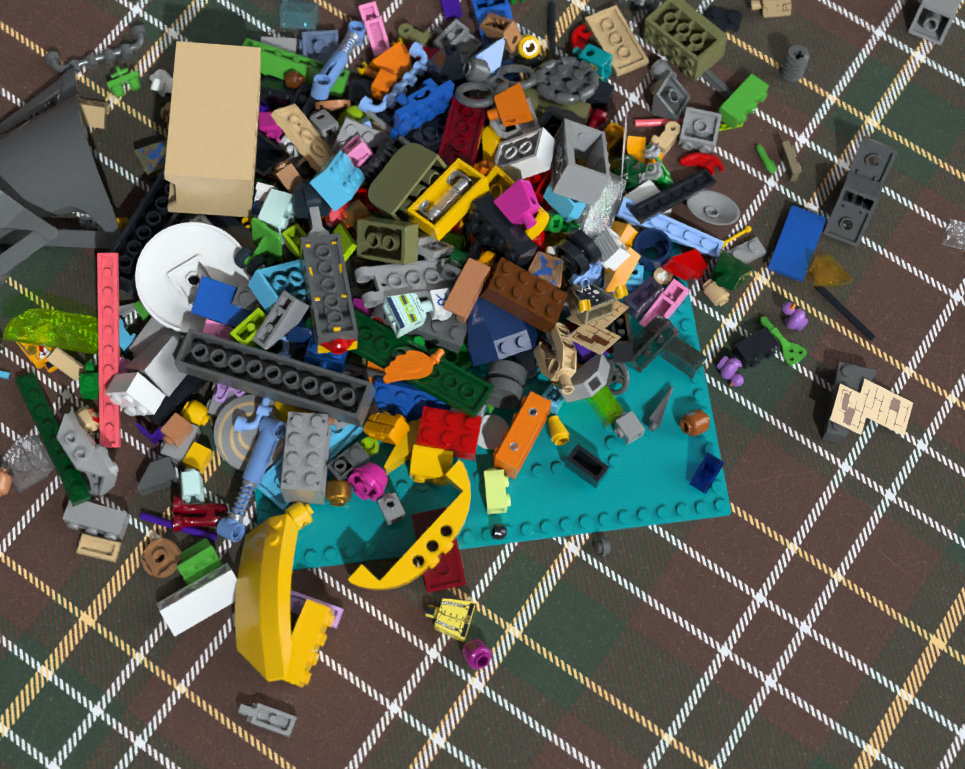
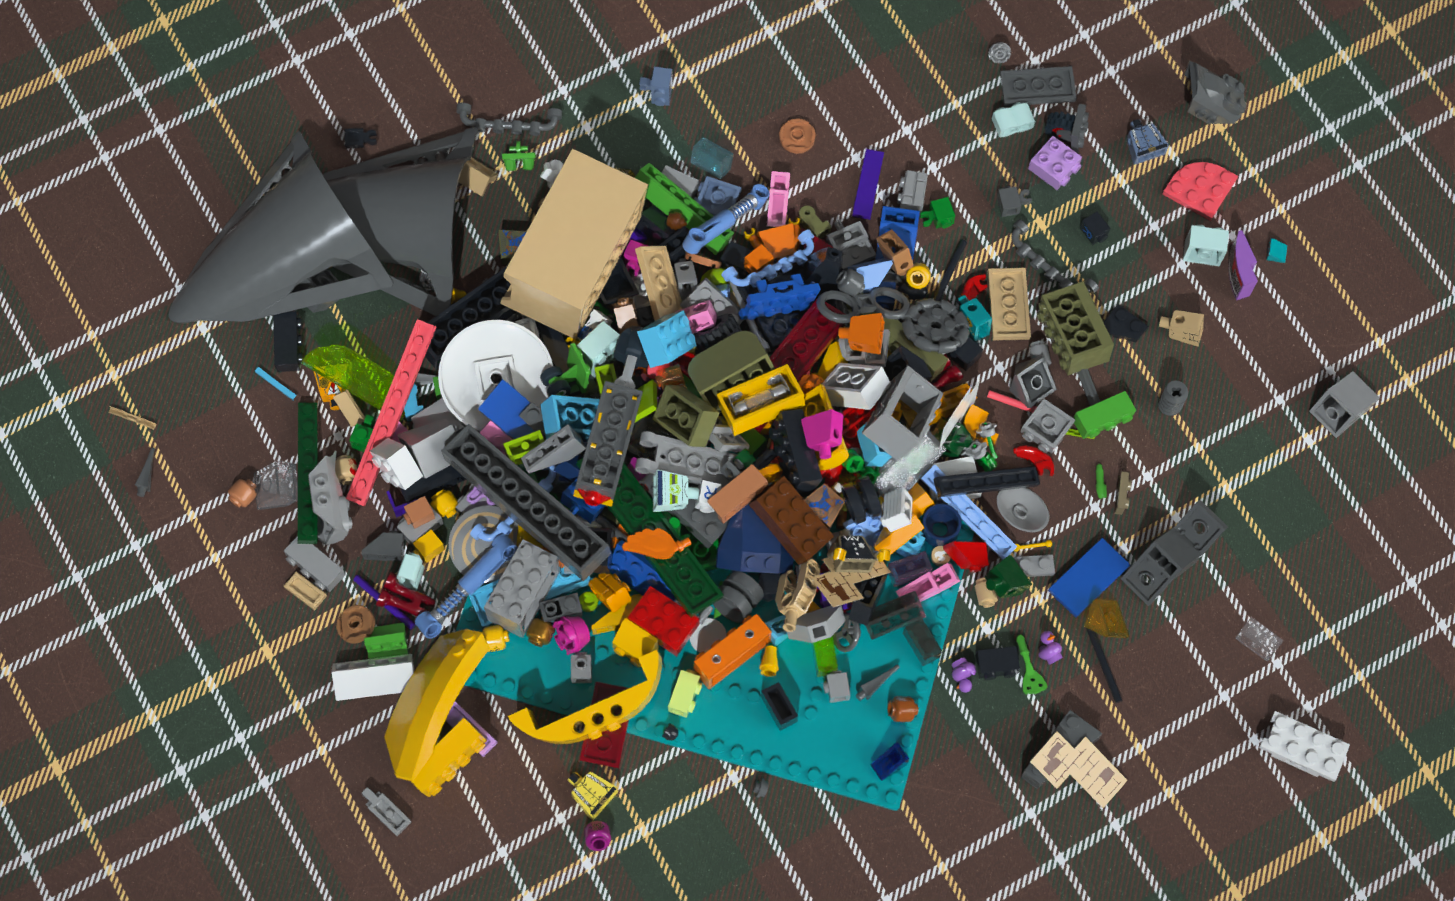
camera: 25 degrees right, 0 degrees up
(668, 137) = (1010, 422): tan leg -> none

